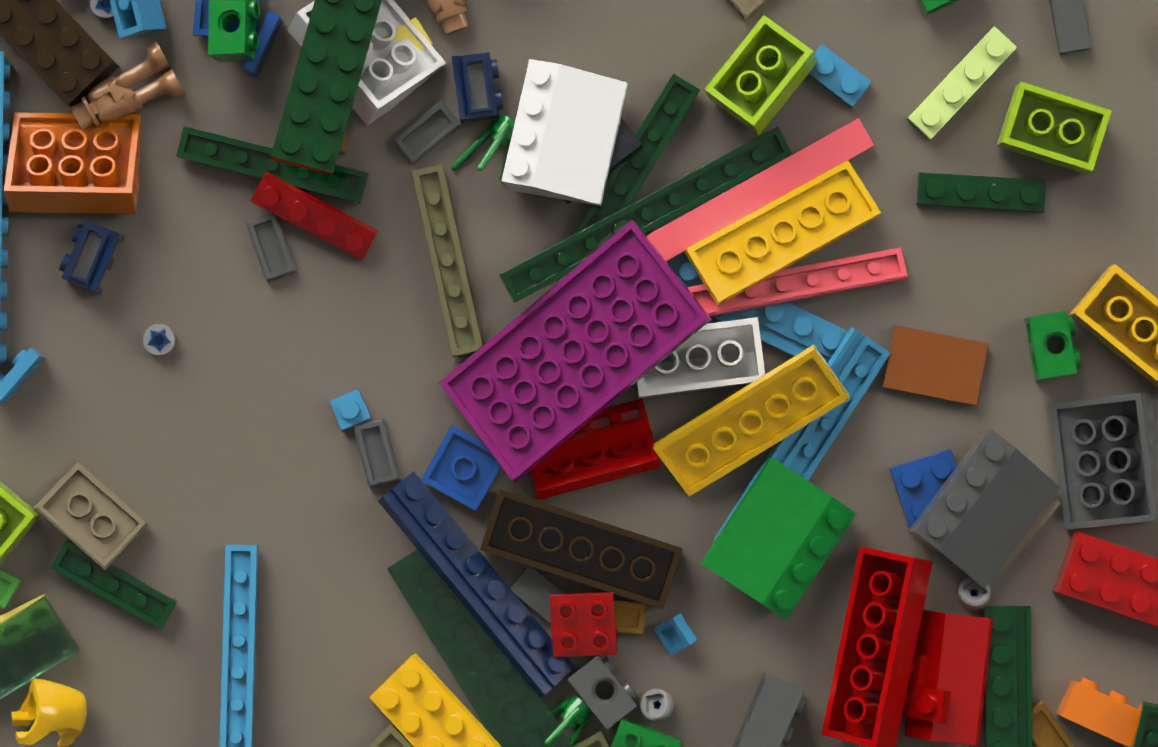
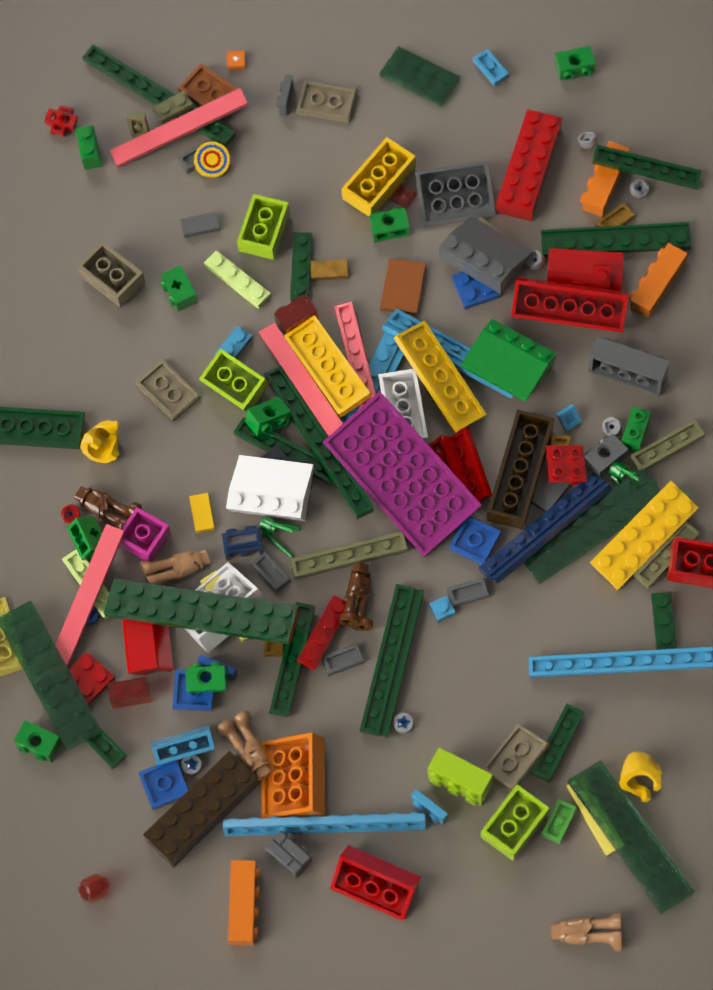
camera: 90 degrees left, 20 degrees down
(54, 425) = (459, 777): none -> lime brick
(90, 255) = (352, 764): dark blue window -> none
(263, 325) = (391, 661): none -> dark green plate
(381, 273) = (358, 588): none -> reddish brown piece
(535, 21) = (201, 513): none -> yellow tile
(707, 143) = (268, 416): none -> green brick
(886, 180) = (294, 314): none -> clear red brick
(972, 240) = (329, 269): none -> pearl gold tile
(1110, 372) = (403, 196): none -> clear red tile

